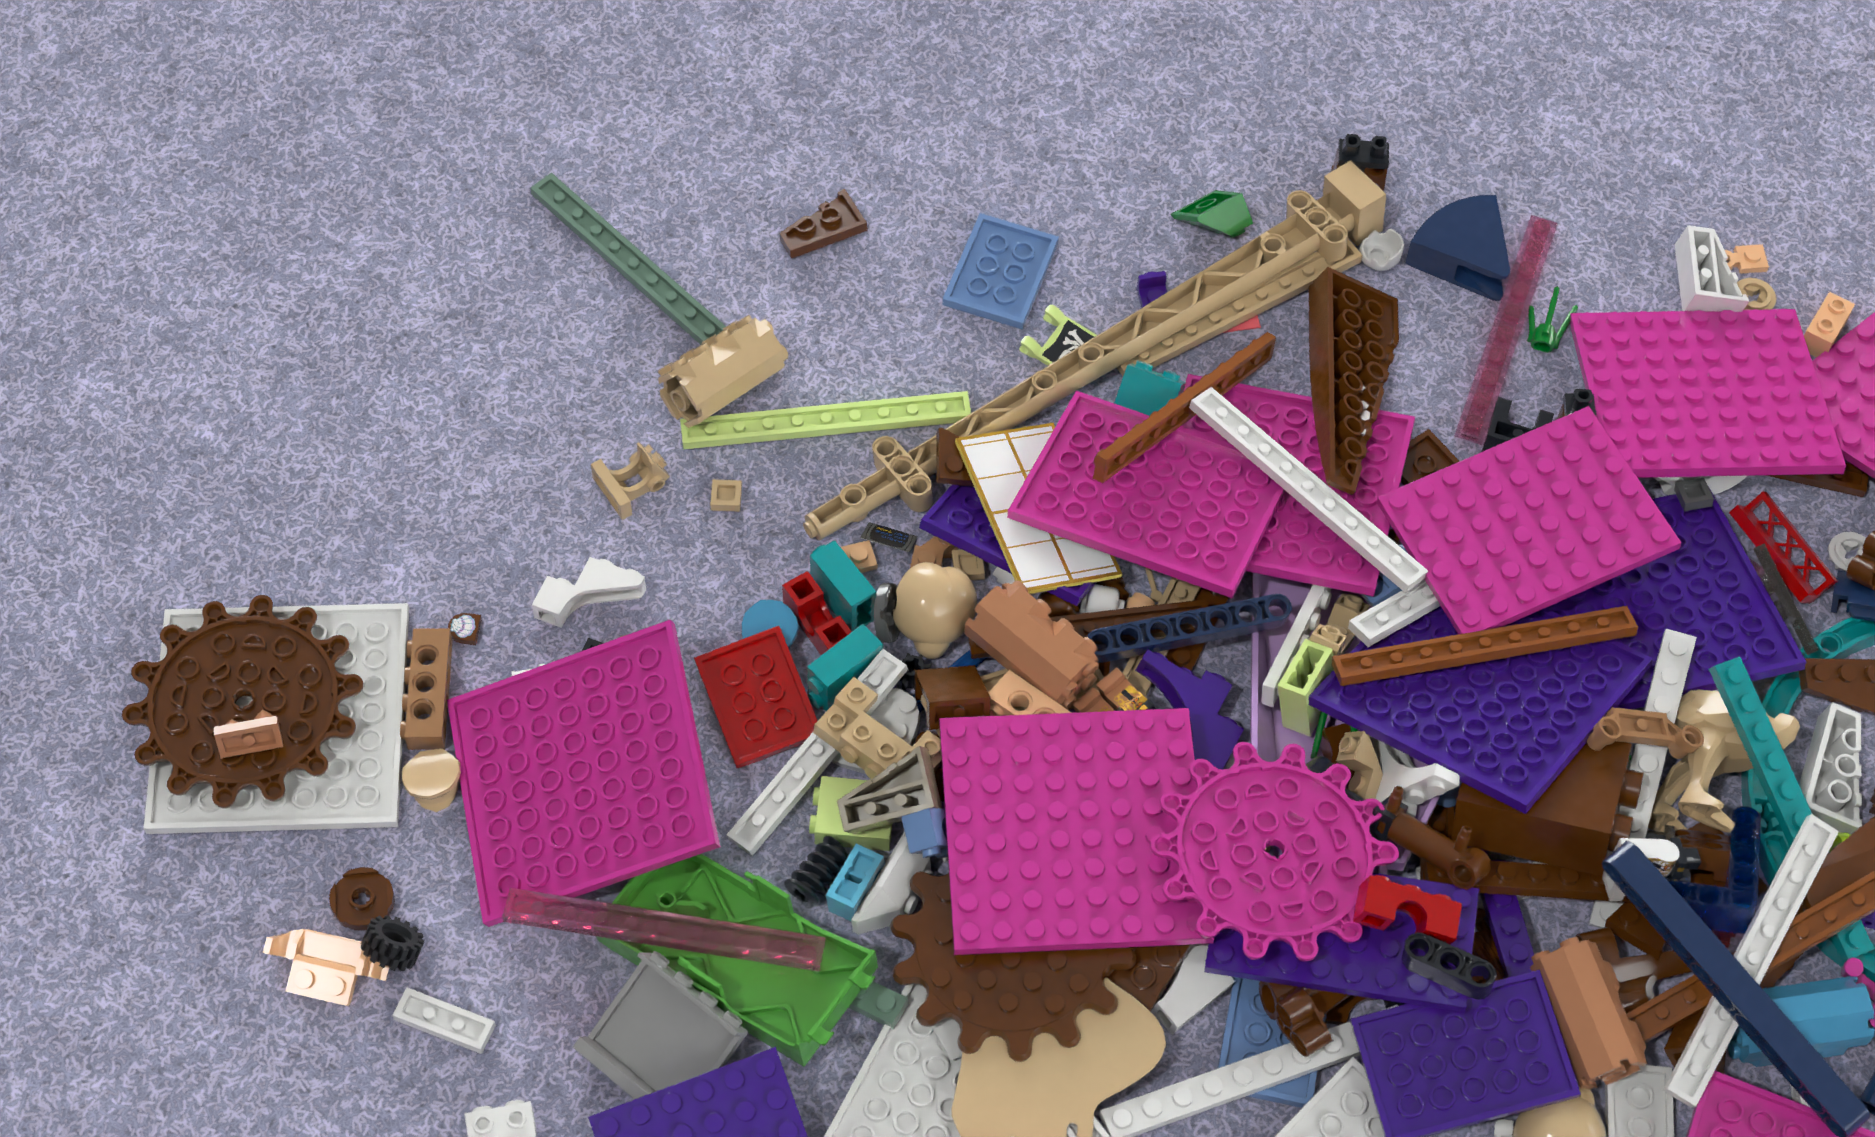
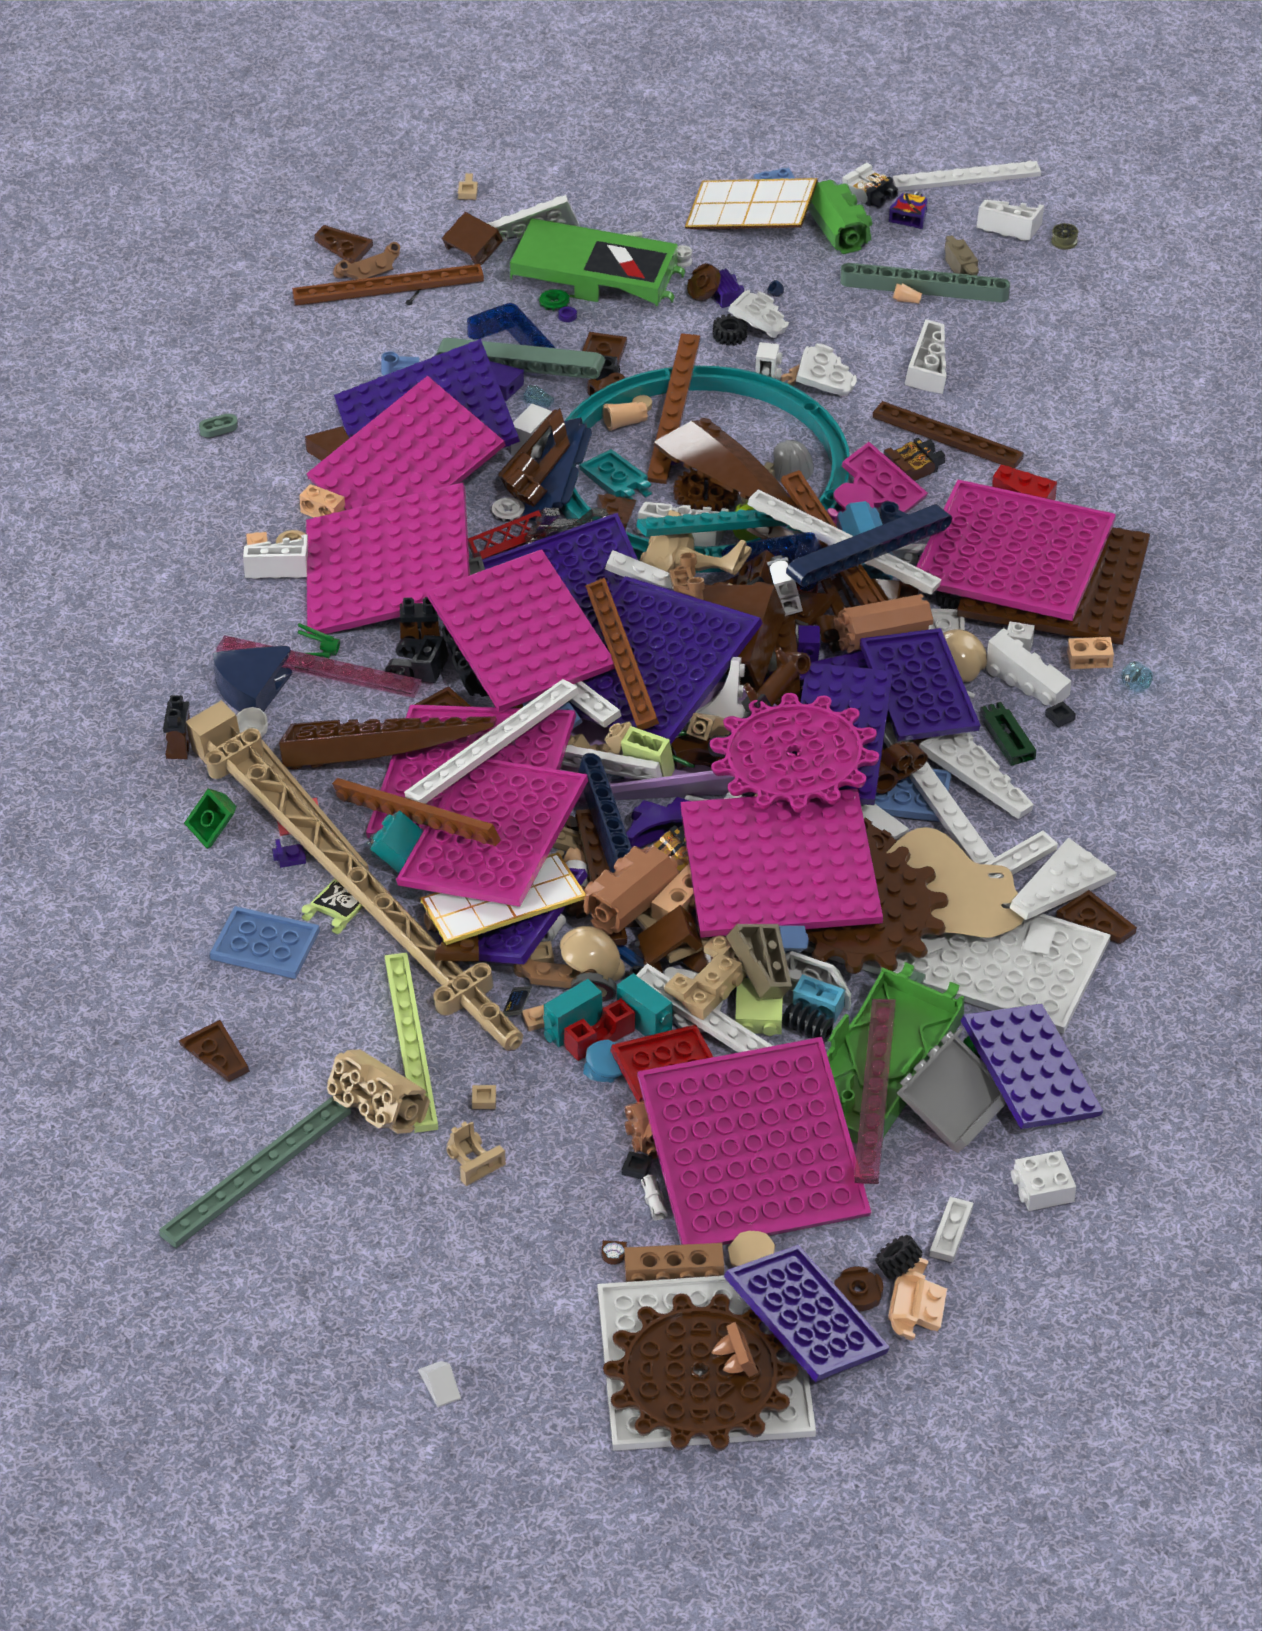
camera: 90 degrees left, 15 degrees down
(294, 440) = (440, 1383): none -> white slope
(310, 822) = (806, 1312): none -> dark purple plate
(597, 583) = (569, 1168): white arch -> none
(1432, 914) = (836, 682): red arch -> none
(1440, 952) = (871, 669): black beam -> none
(1554, 918) = (809, 641): none -> dark purple brick

